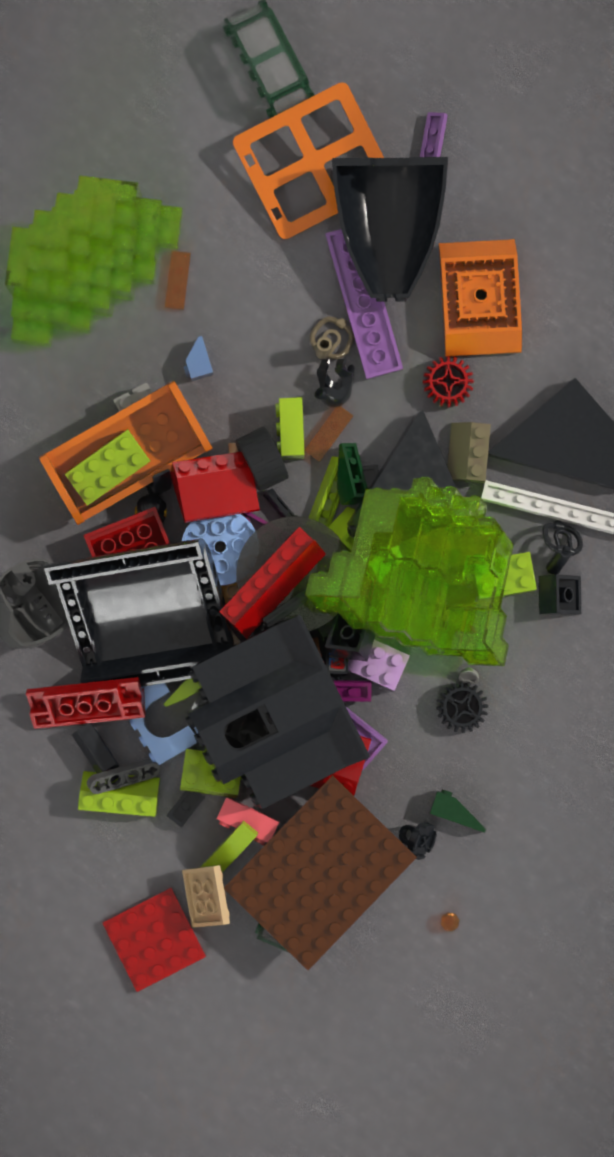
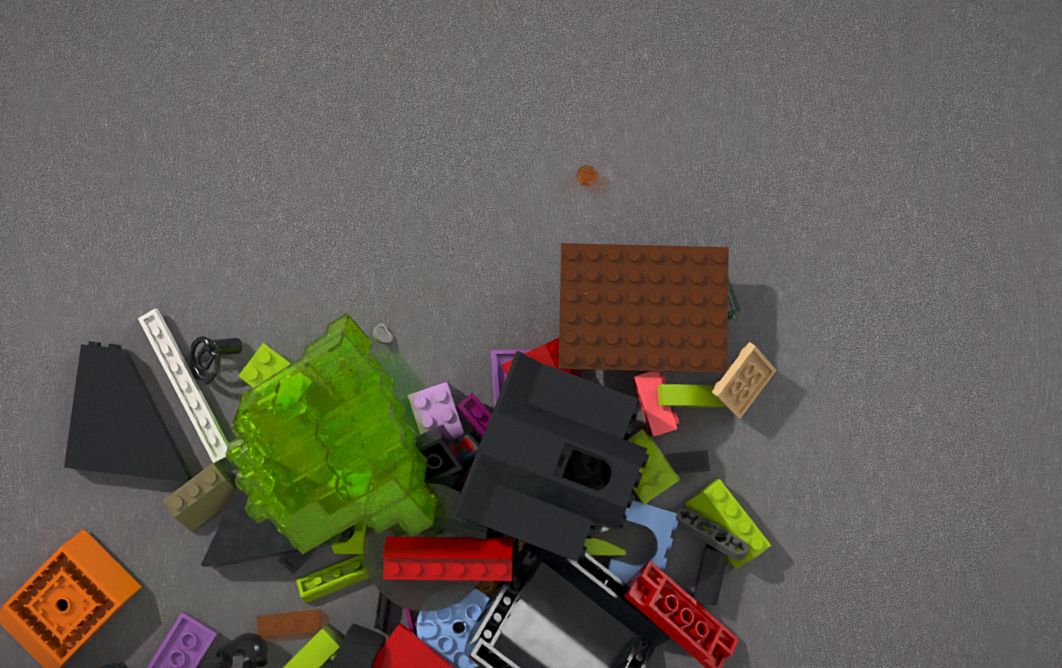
camera: 135 degrees left, 0 degrees up
(154, 939) = (813, 391): red plate -> none
(350, 476) = (306, 574): dark green slope -> none
(421, 838) = (543, 254): black tile -> none
(439, 381) = (166, 571): red gear -> none
(451, 809) = (498, 251): dark green slope -> none
(471, 692) = (421, 315): black gear -> none
(559, 594) = (252, 322): black slope -> none

